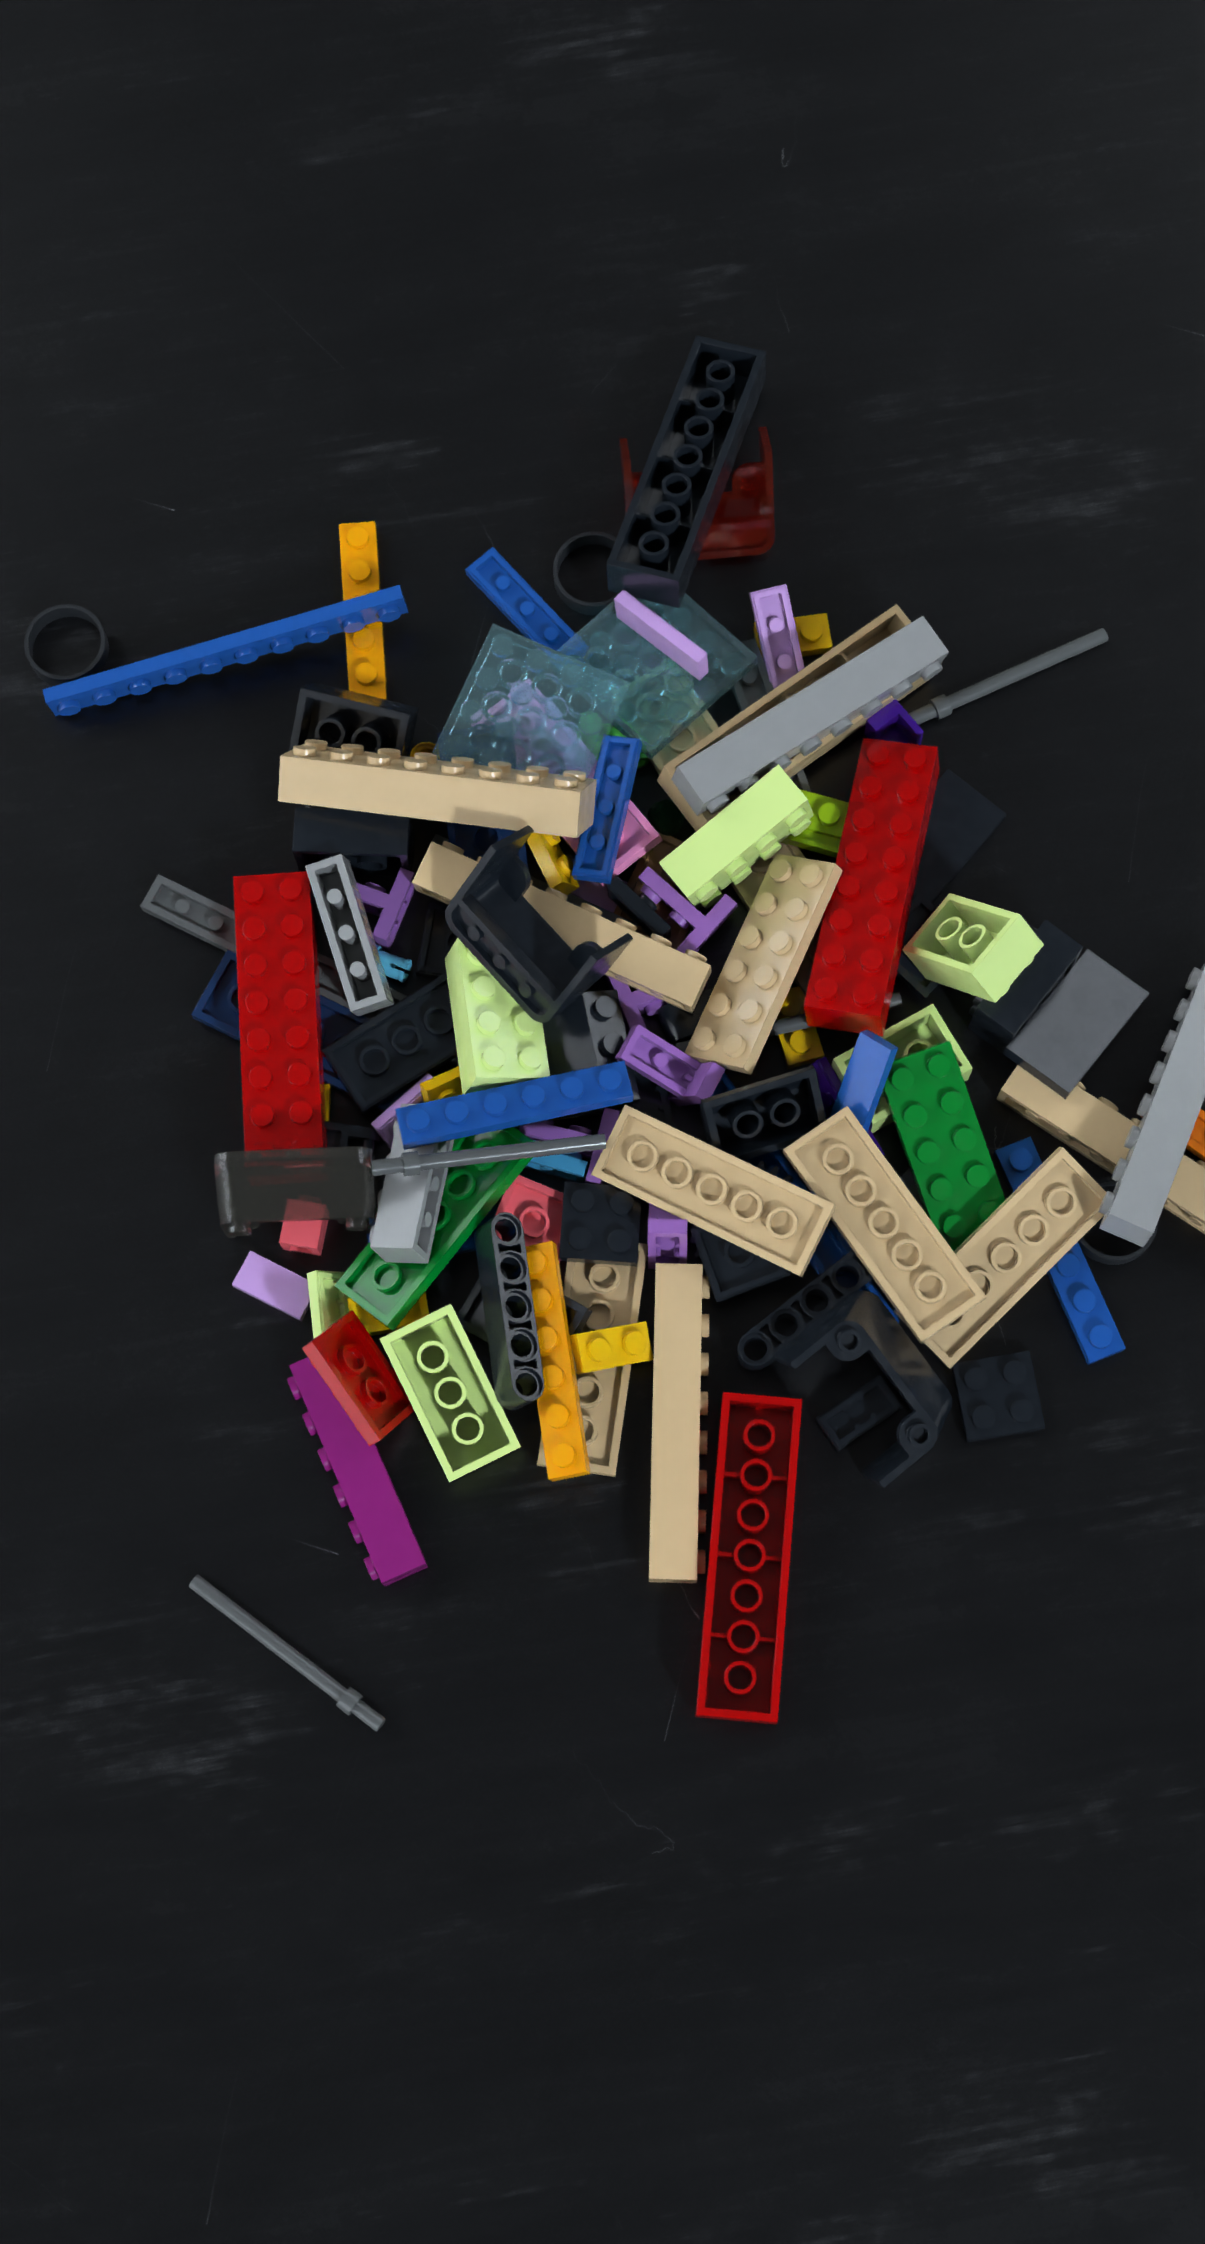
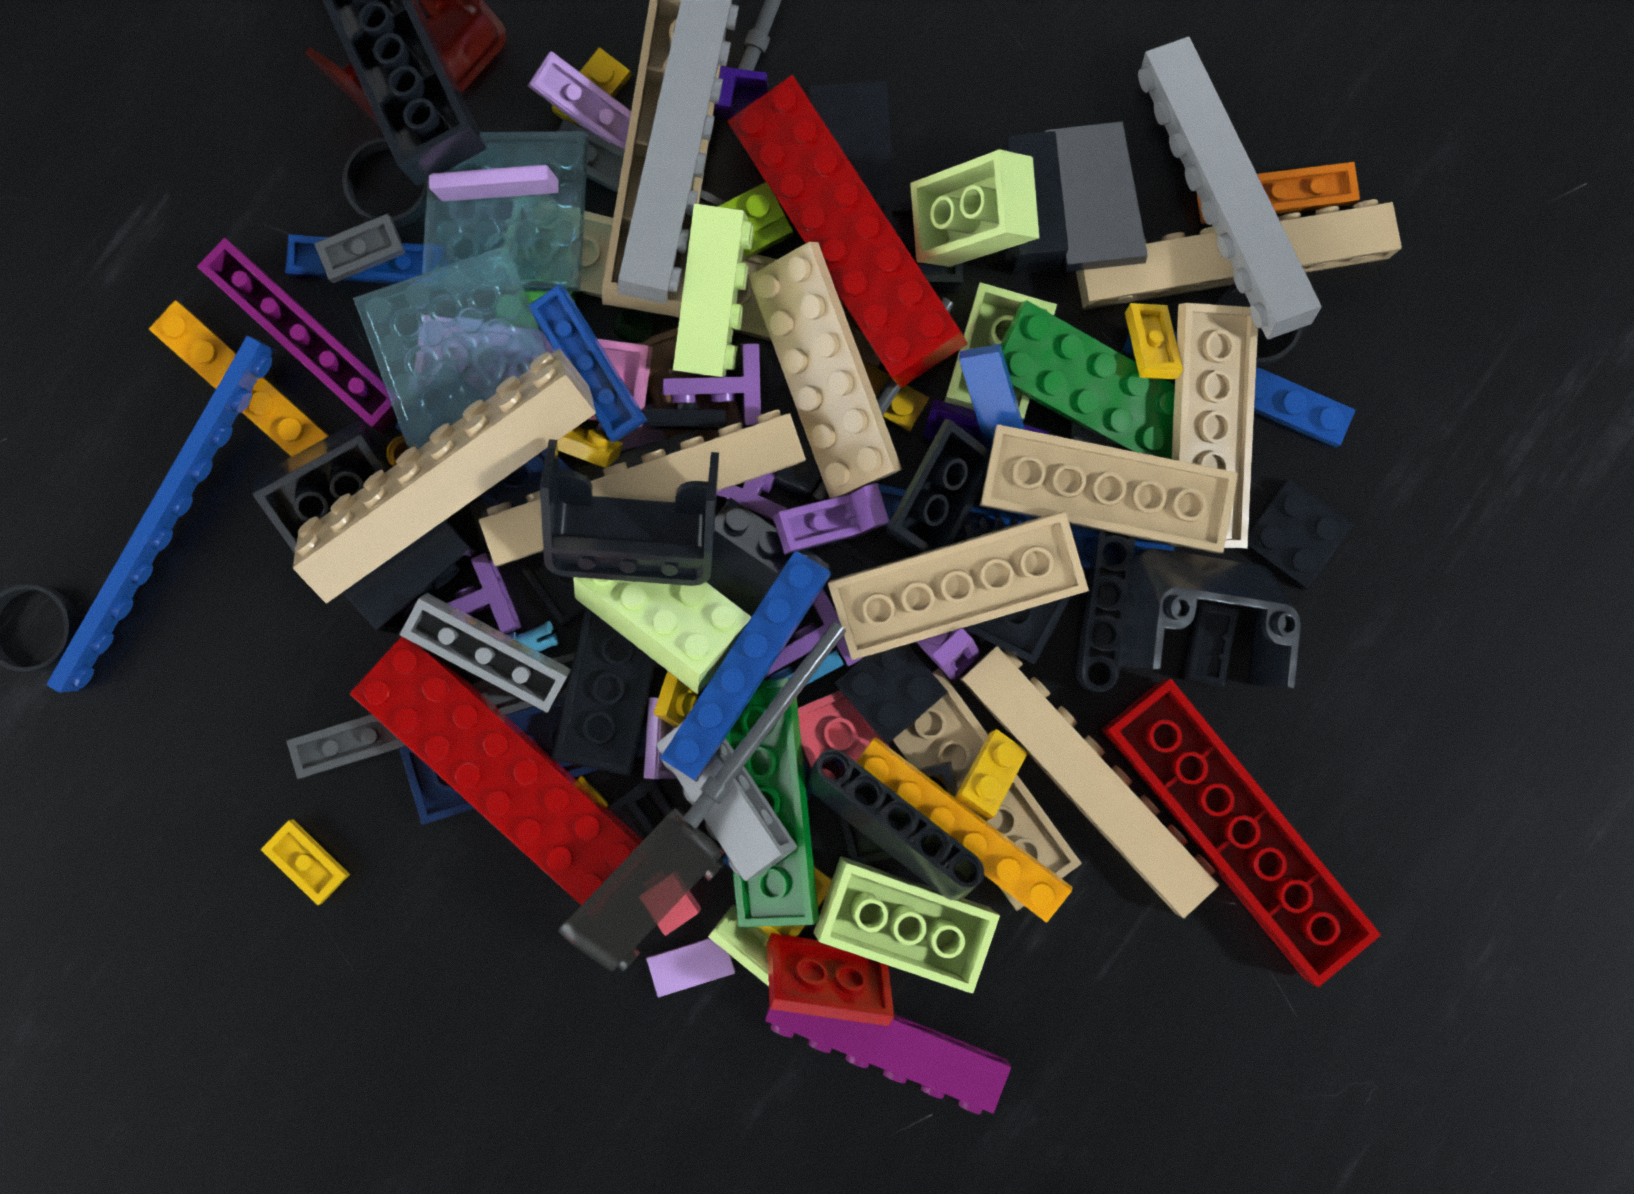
camera: 45 degrees left, 10 degrees up
(89, 966) = (305, 862): none -> yellow plate
(435, 617) = (300, 334): none -> magenta brick
(531, 598) = (360, 248): none -> dark grey plate
(1018, 1157) = (1153, 341): none -> yellow plate

